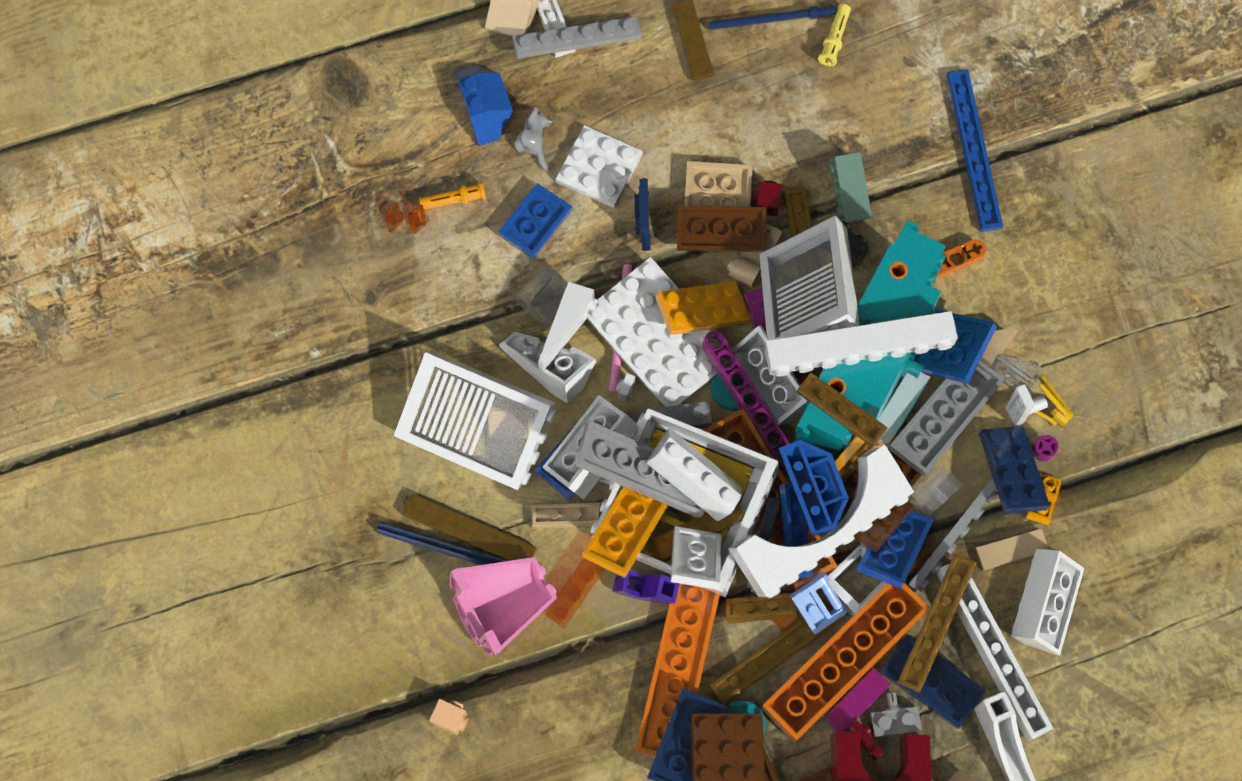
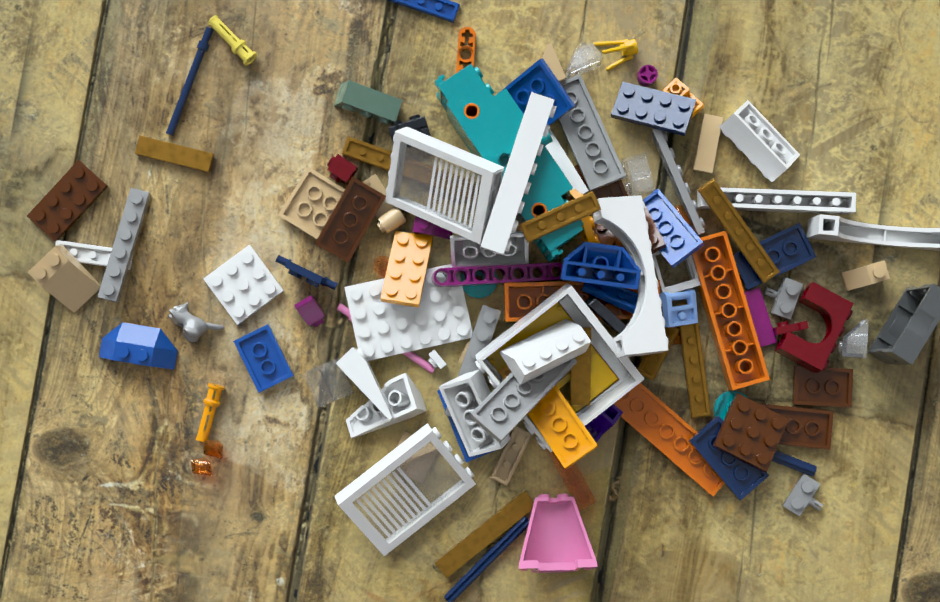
camera: 65 degrees left, 15 degrees up
(608, 238) = (311, 311): none -> magenta slope
(696, 558) = (608, 384): white plate -> none
(1022, 405) = (612, 75): white piece -> none

